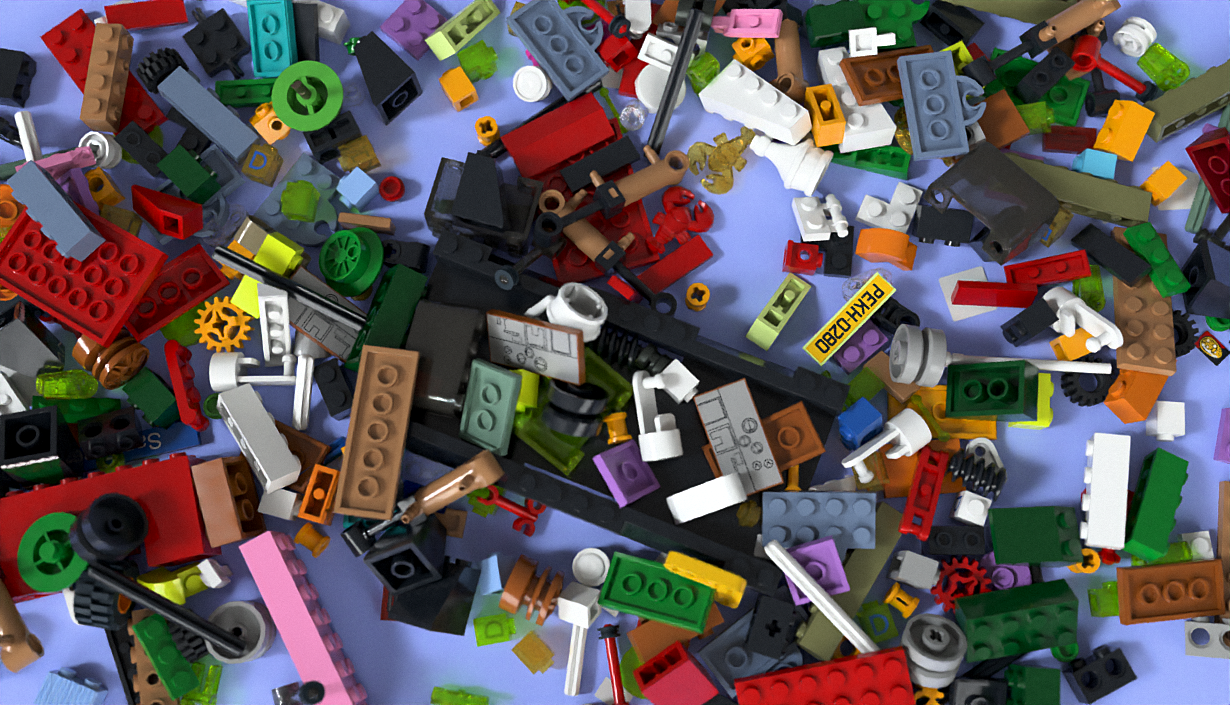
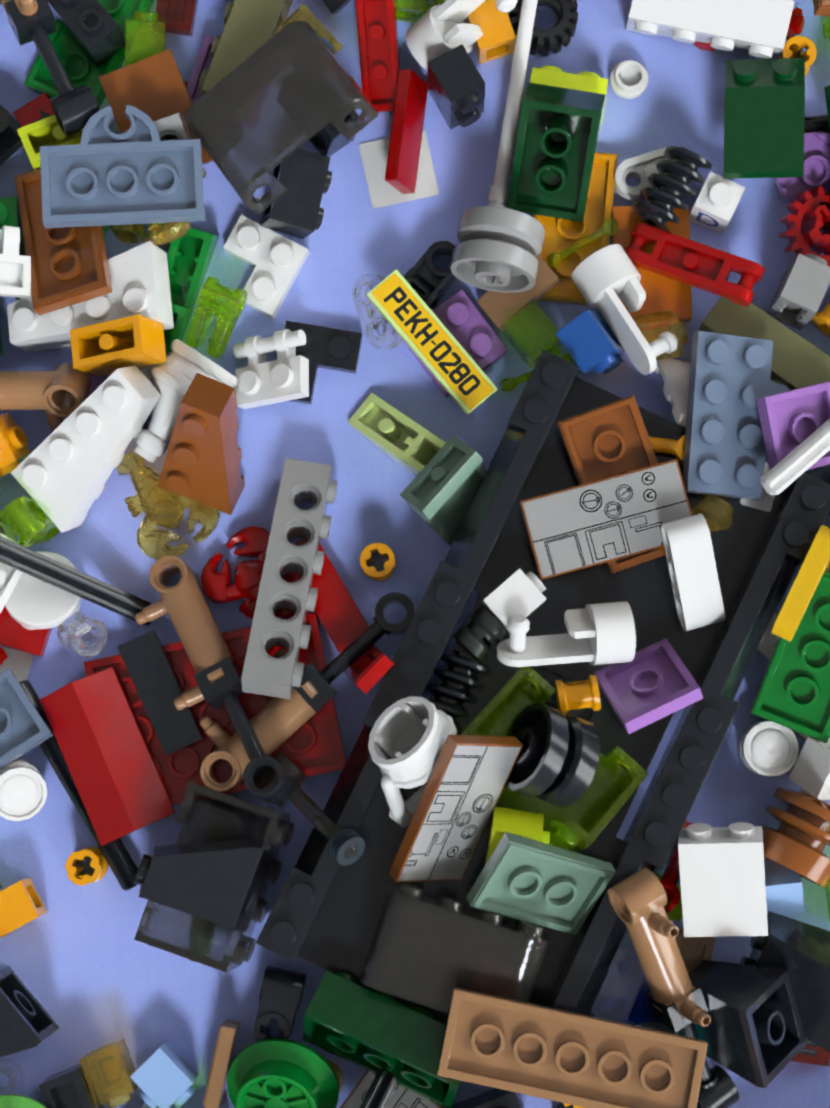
camera: 80 degrees left, 5 degrees up
(392, 189) = (166, 1022): red plate -> none
(499, 532) = (722, 880): none -> white brick
(604, 92) = (38, 678): clear neon green hinge -> none
(744, 239) = (298, 483): none -> light grey brick
(750, 332) = (446, 488): none -> sand green panel
(761, 174) = (204, 447): none -> dark orange wedge
(795, 264) = (334, 415): red brick -> none
(857, 181) = (226, 312): none -> clear neon green piece
(886, 246) = (325, 277): orange brick -> none
(954, 541) = (760, 227): black brick -> none
(1052, 444) = (629, 79): none -> white plate

